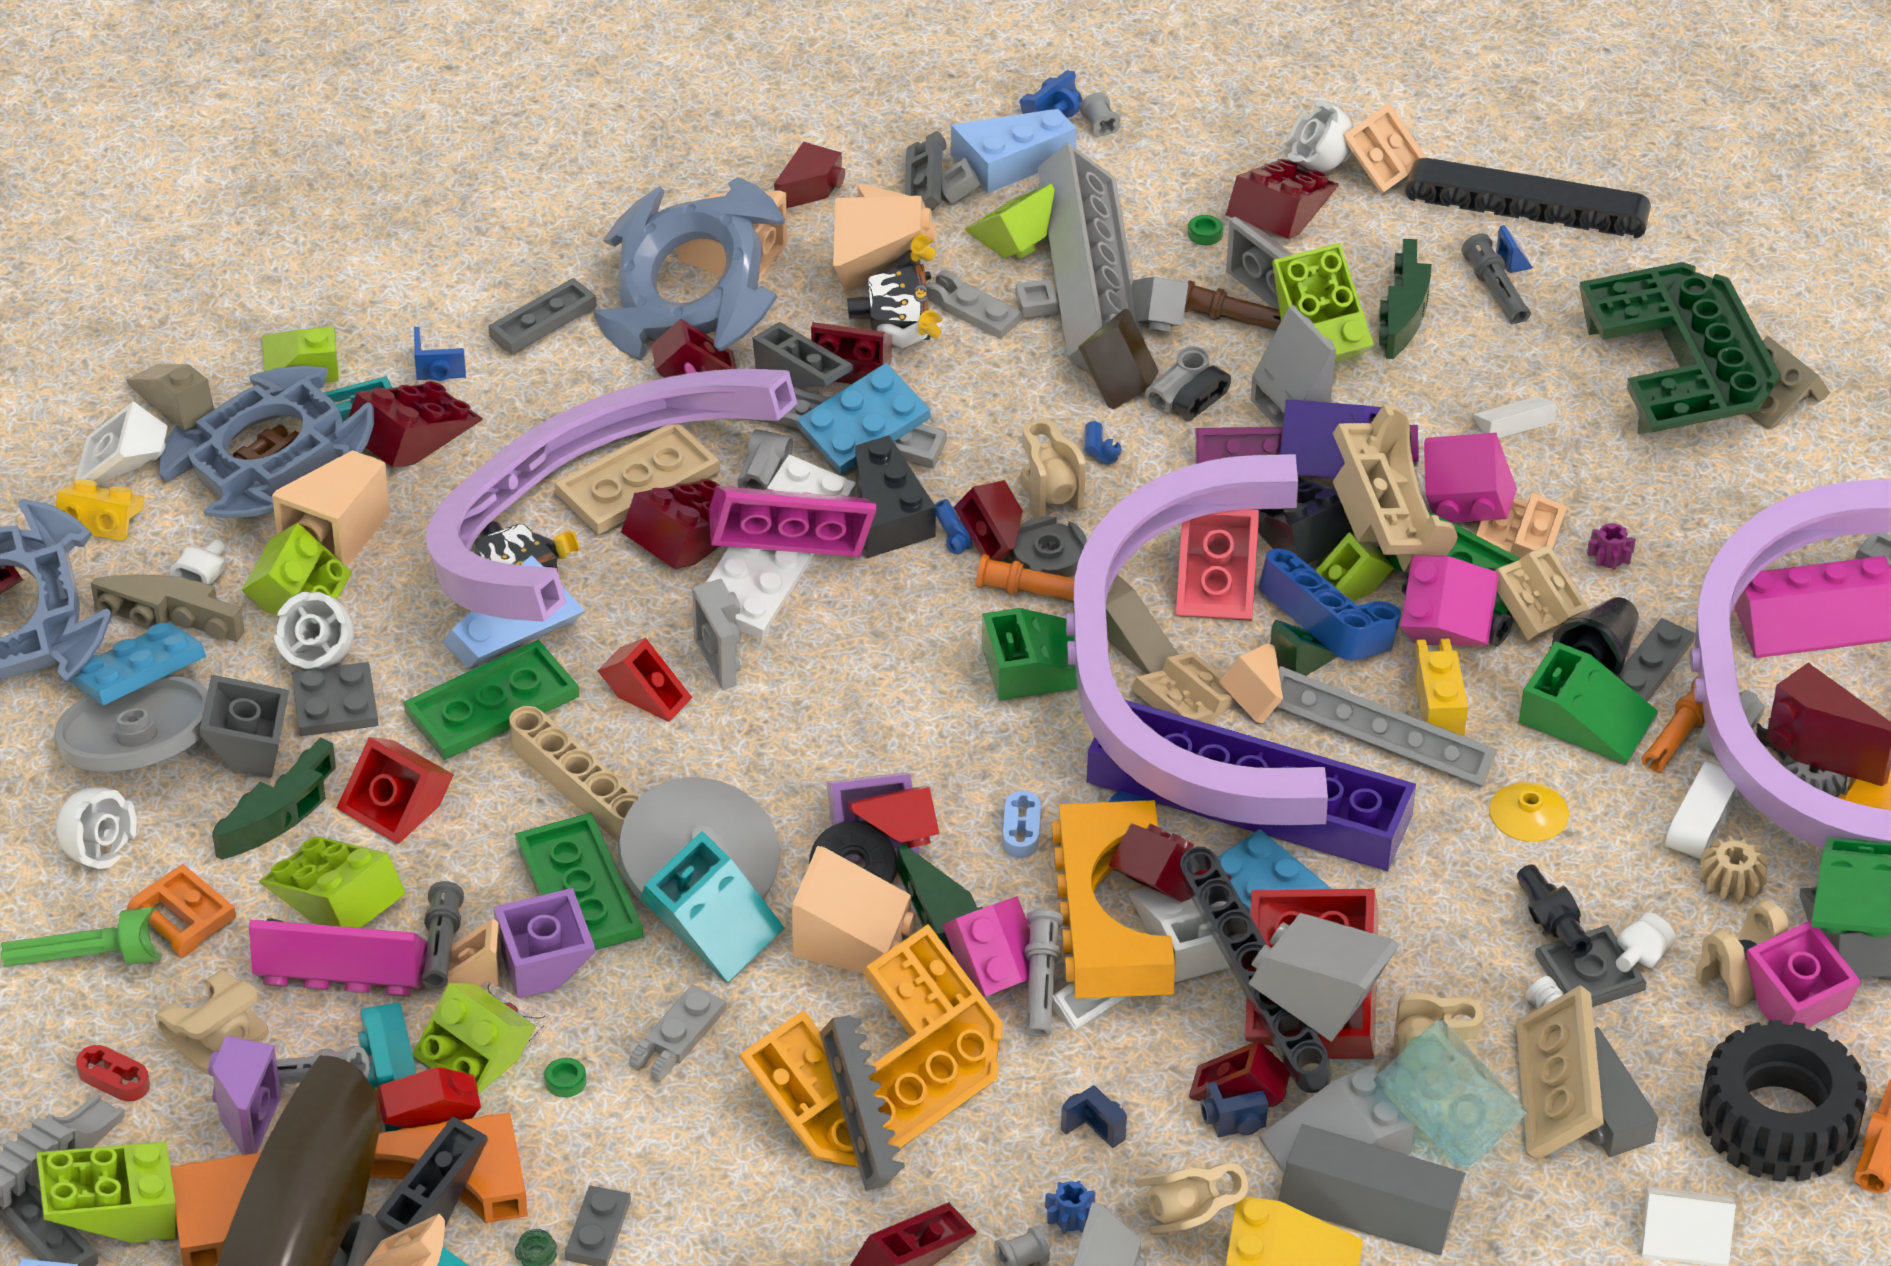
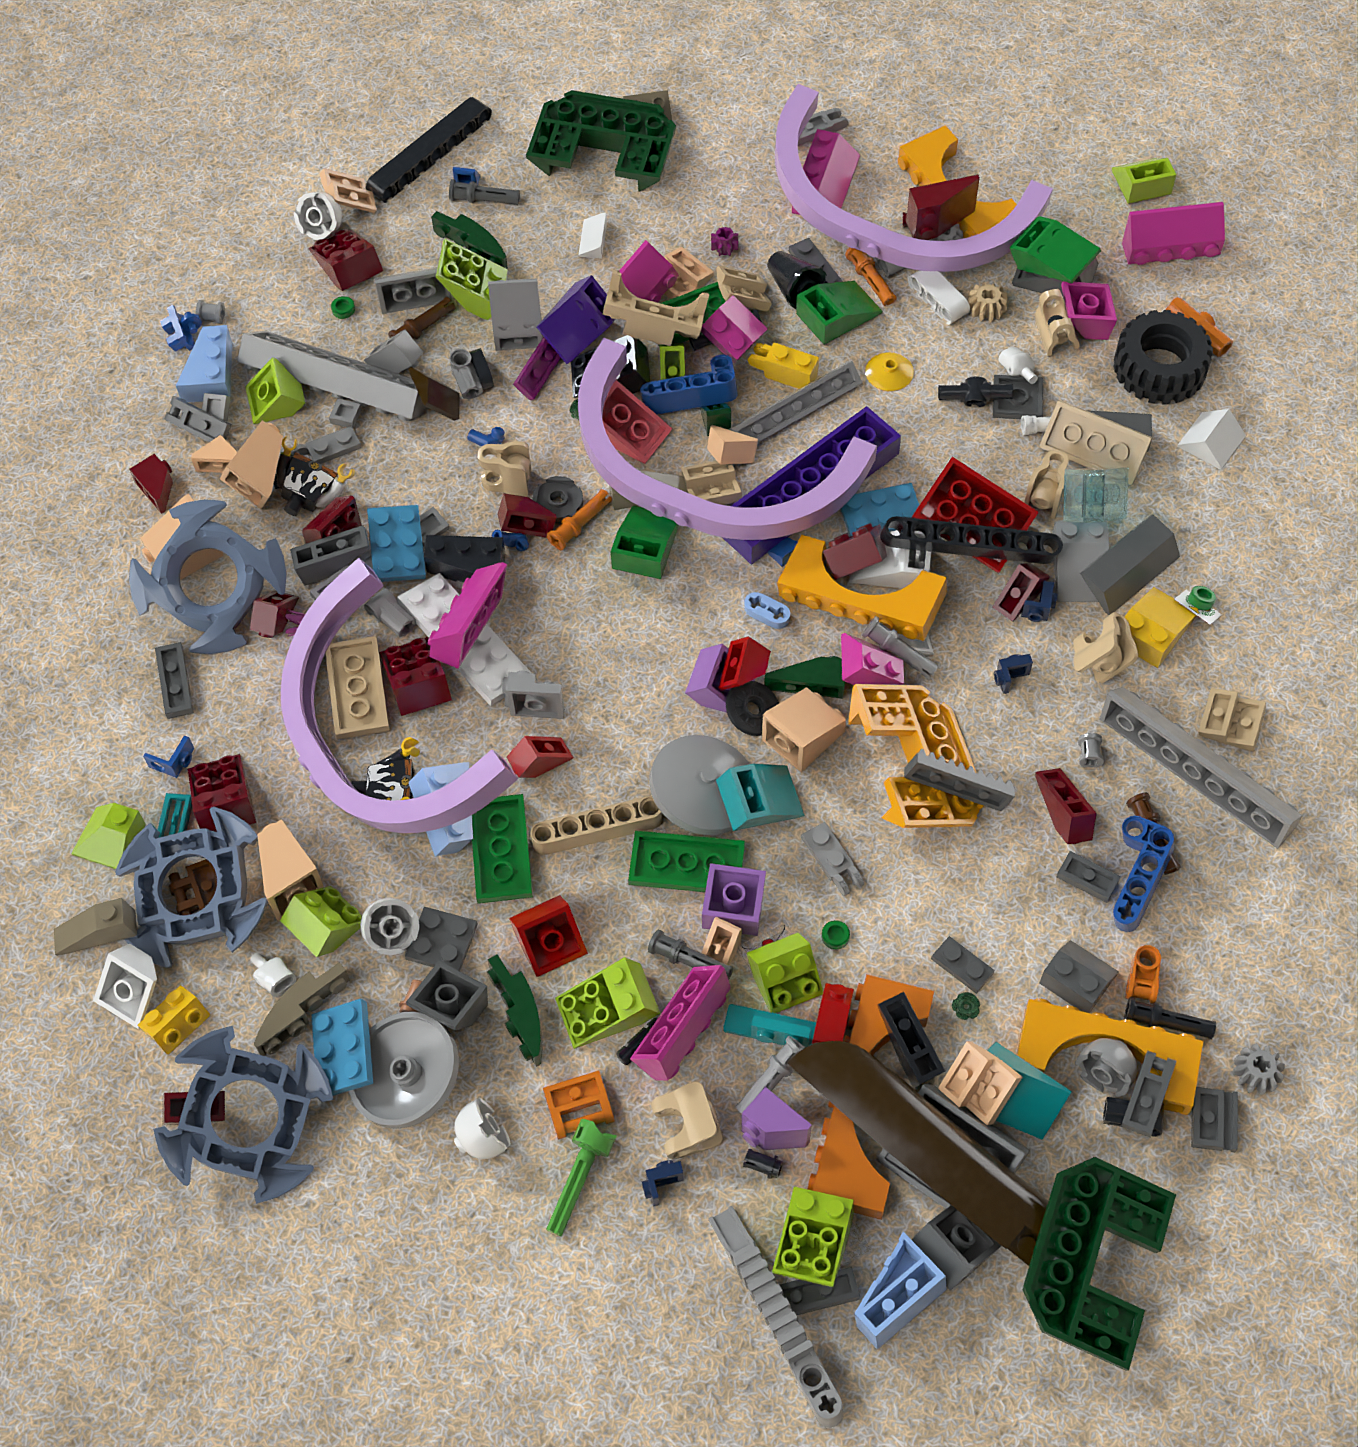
camera: 60 degrees left, 15 degrees up
(110, 1076) = (700, 1207): red beam -> none
(121, 1018) = (663, 1174): none -> dark blue bracket
(195, 1125) = (763, 1163): none -> black pin
(1069, 1206) = (1071, 712): blue gear -> none
(1321, 970) = (1015, 503): light grey slope -> none

